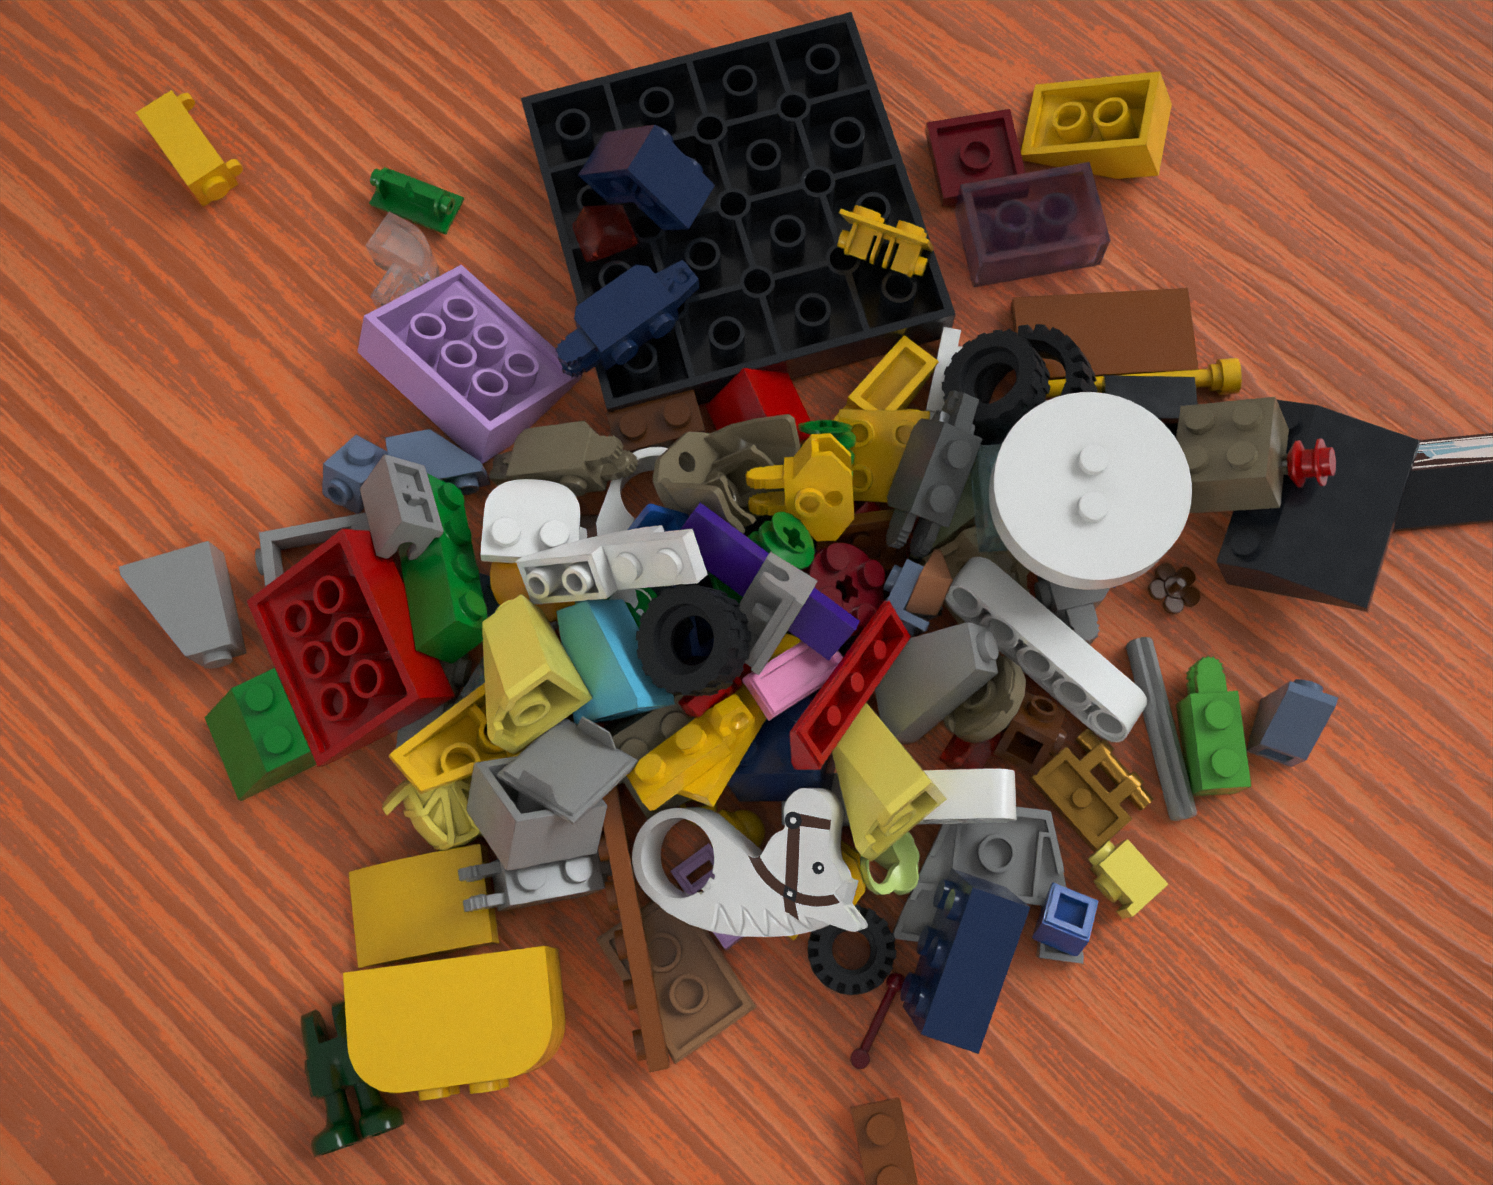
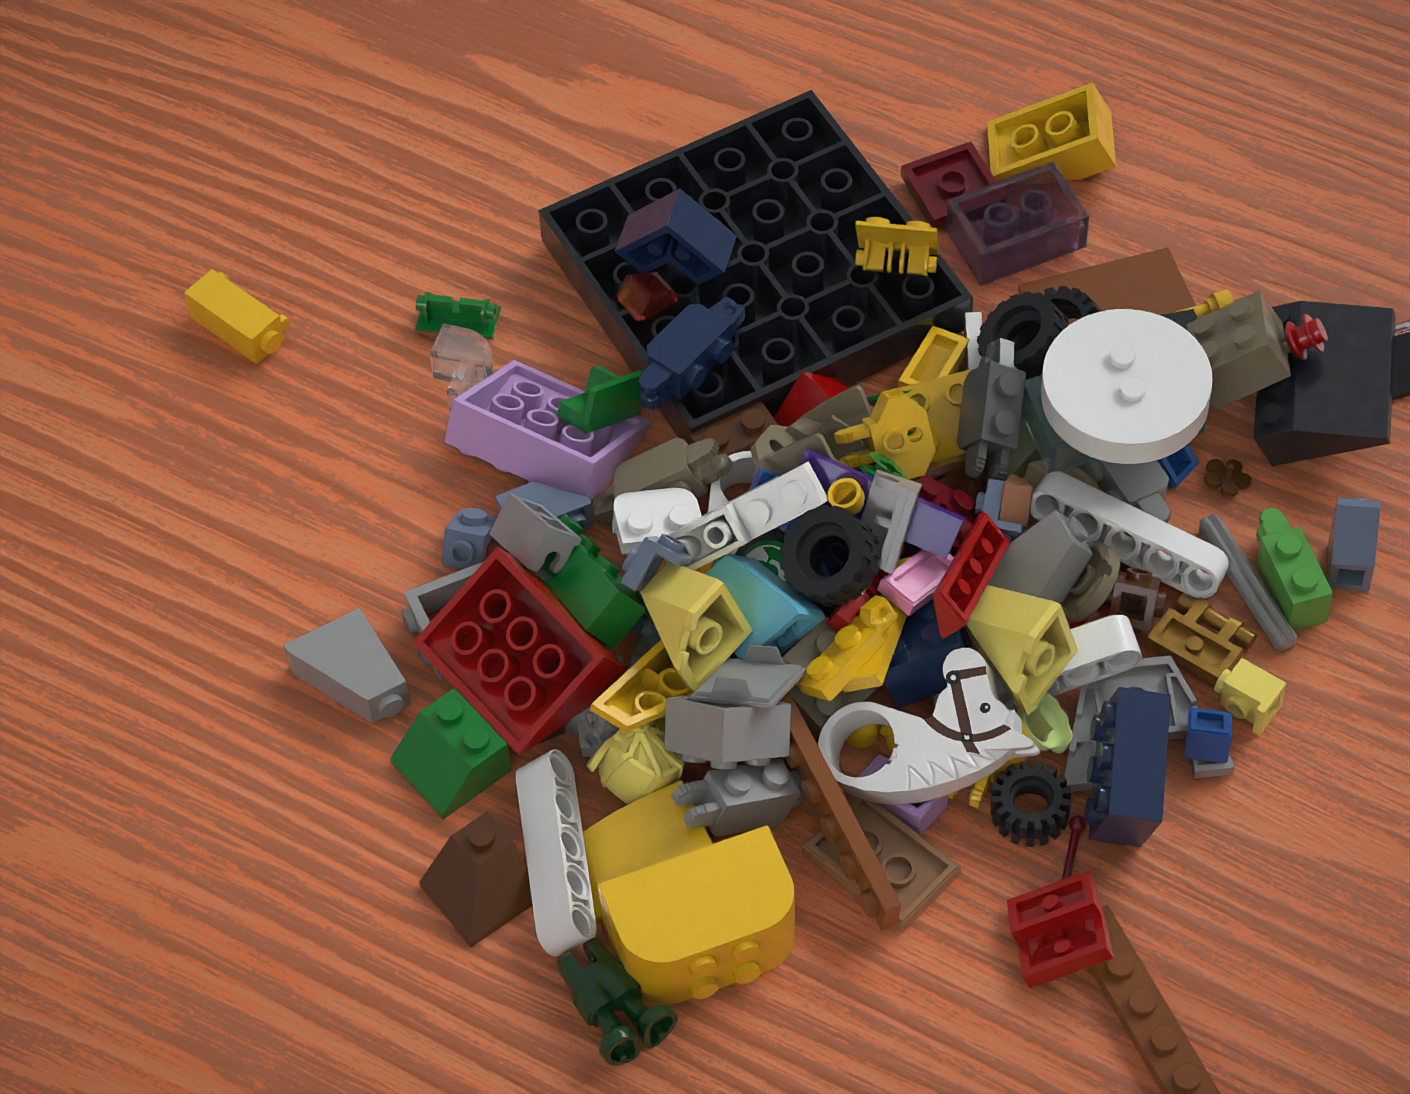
camera: 15 degrees left, 20 degrees down
(254, 895) = (479, 880): none -> reddish brown slope
(333, 886) = (555, 853): none -> white beam
(508, 585) = (643, 562): none -> sand blue bracket
(525, 349) = (605, 401): none -> green panel
(724, 569) = (846, 494): none -> yellow hinge
(838, 1122) = (1059, 929): none -> red slope

